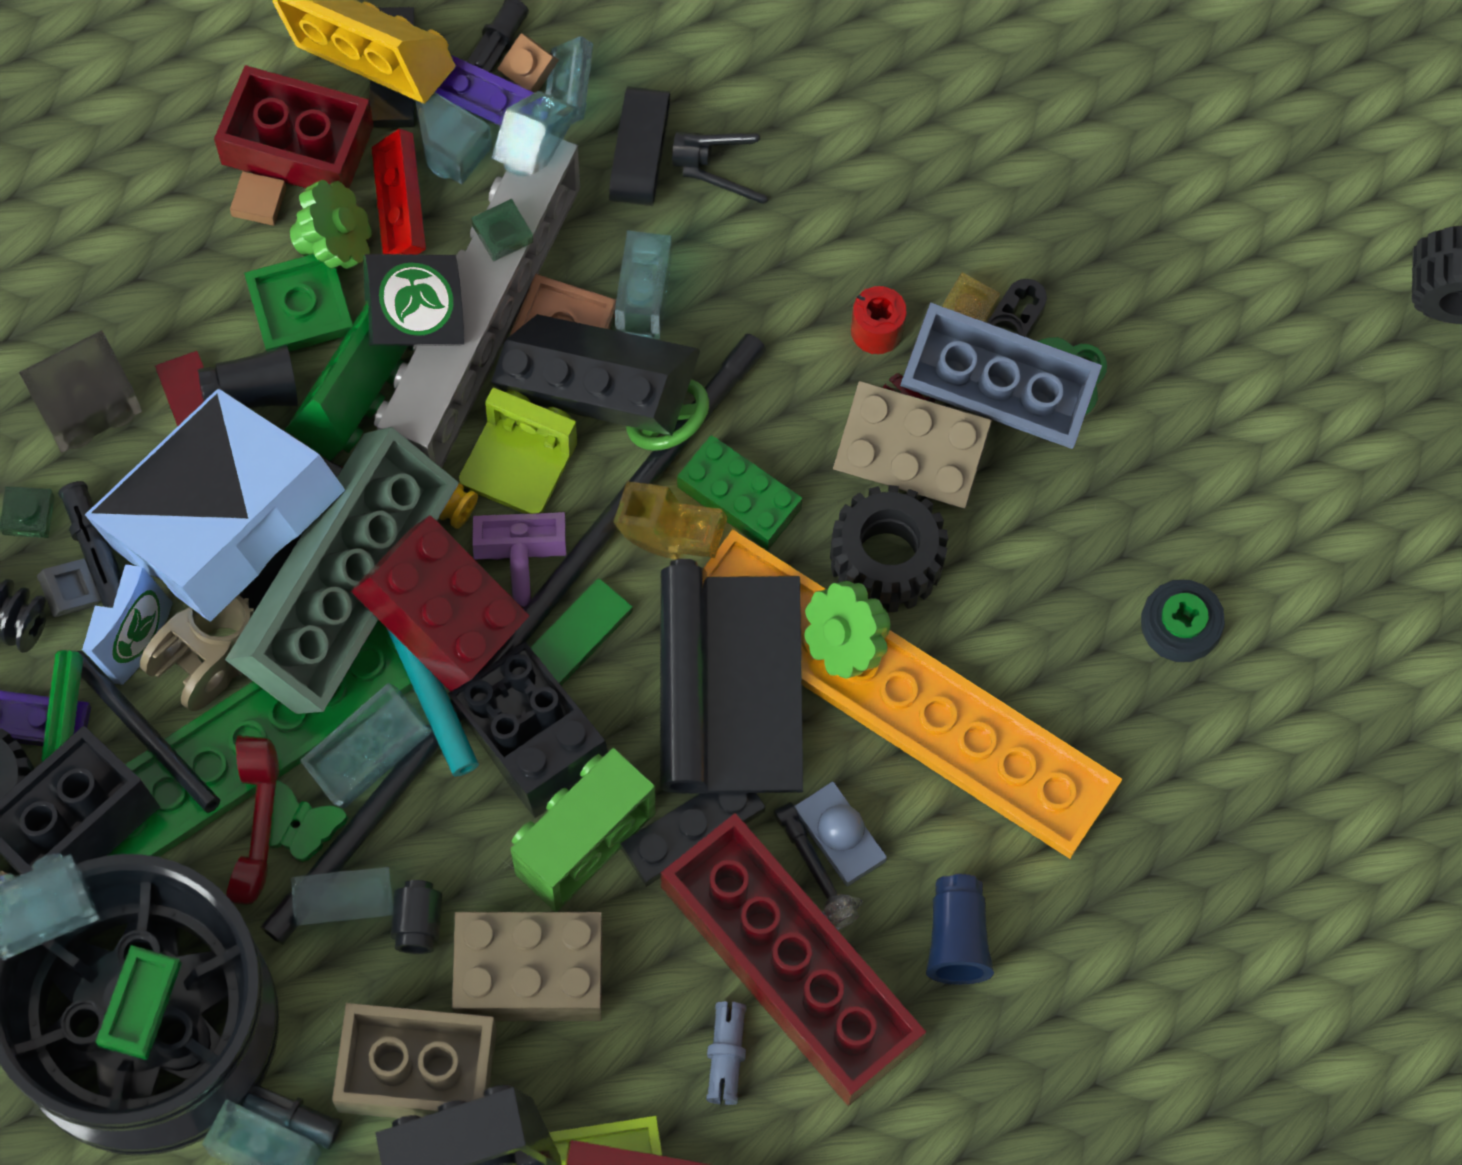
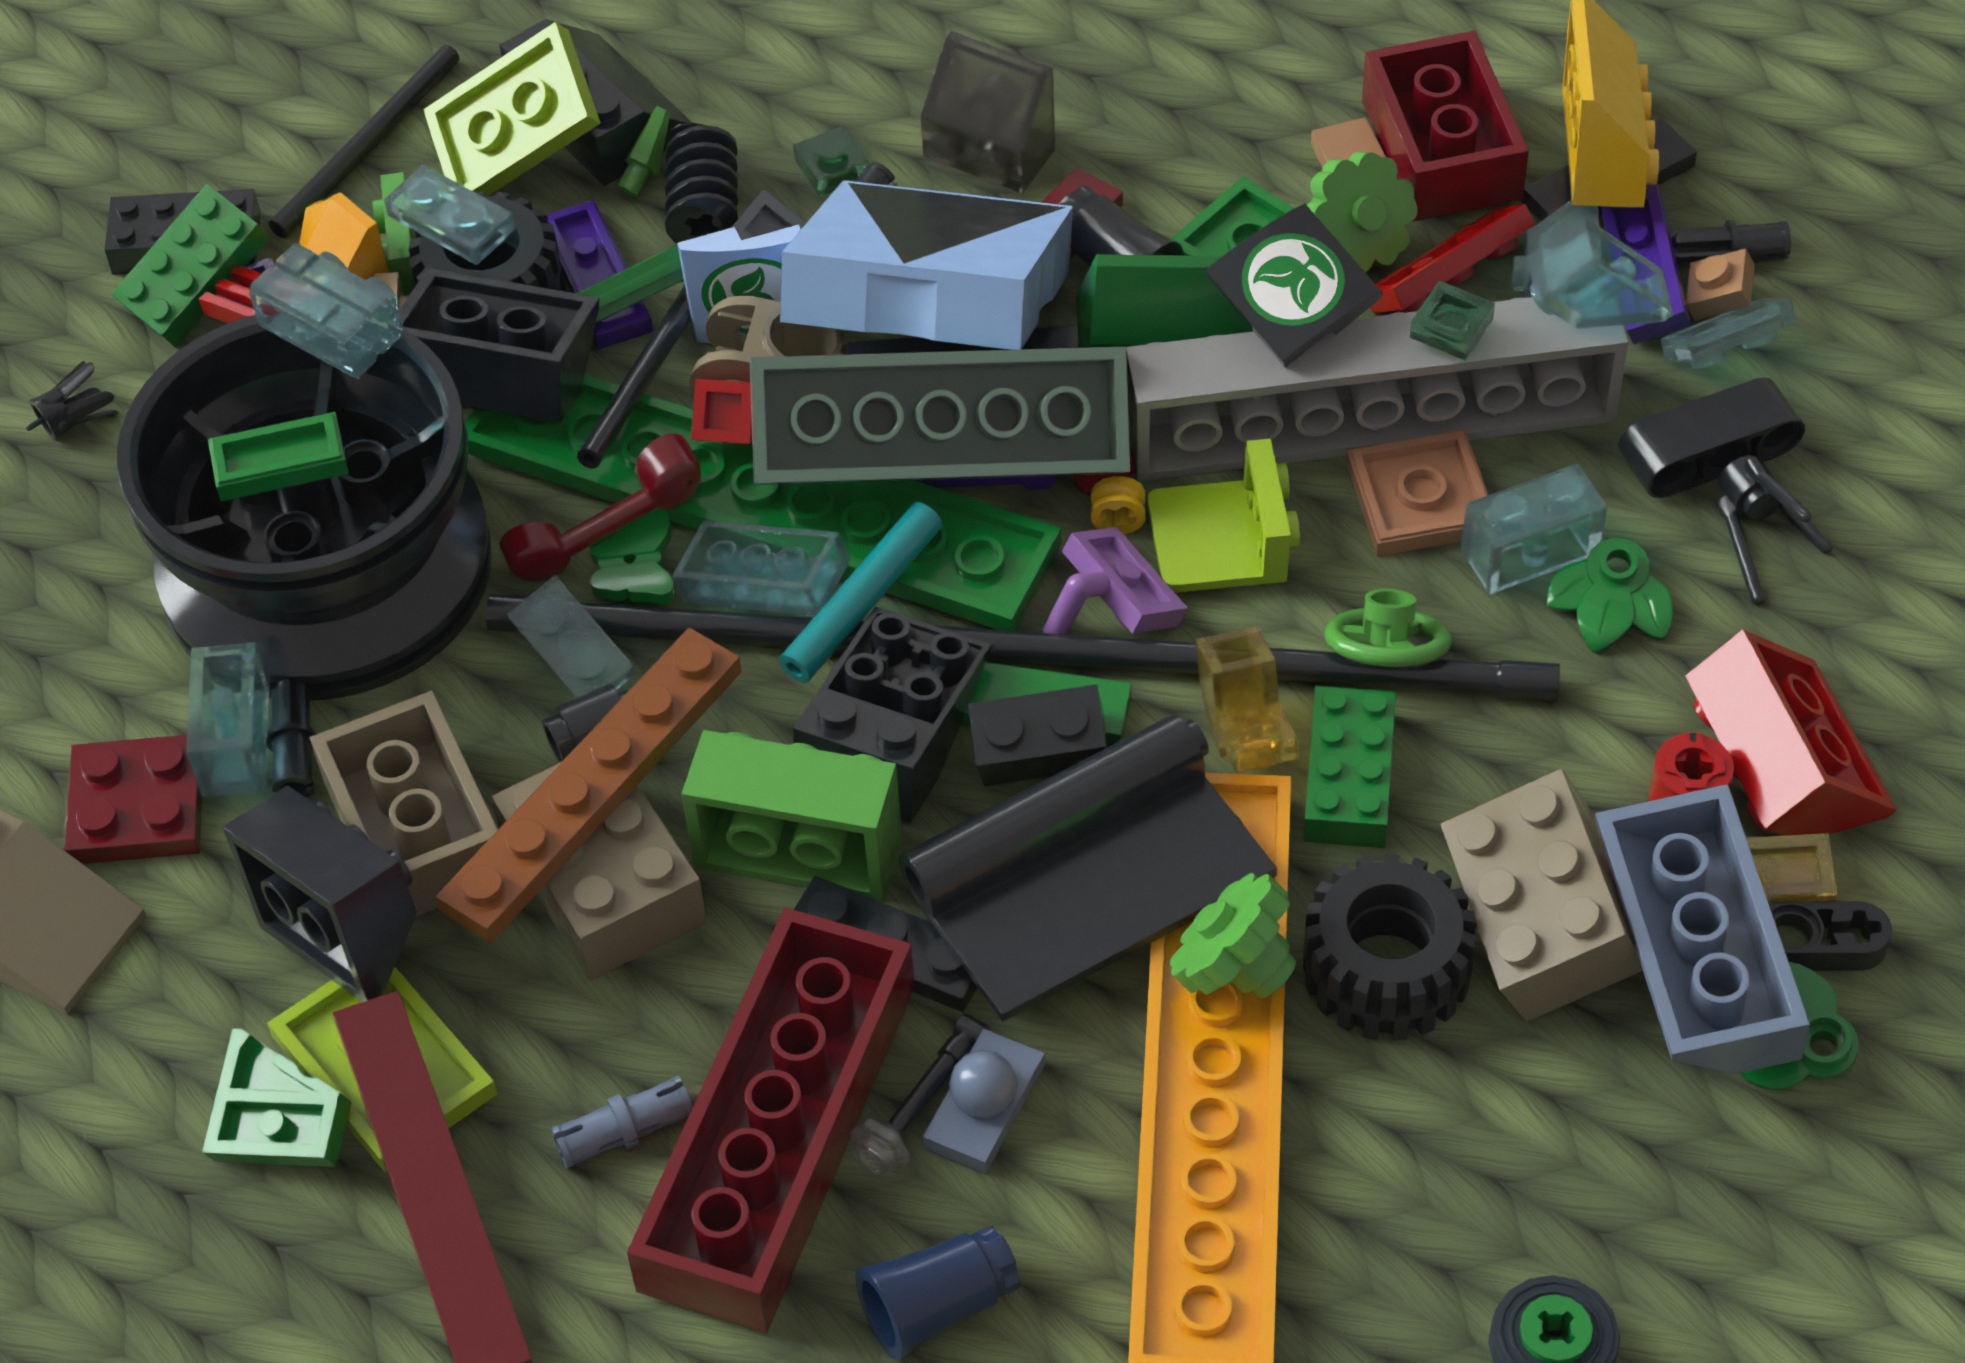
camera: 65 degrees right, 15 degrees down
(229, 697) = (722, 412): none -> red plate
(440, 603) = (959, 515): dark red brick -> none
(495, 940) = (588, 785): none -> dark orange plate
(597, 372) = (1370, 523): black slope -> none
(614, 652) = (1036, 733): none -> black brick
(717, 278) = (1610, 600): none -> green plate
(880, 250) = (1787, 739): none -> red slope

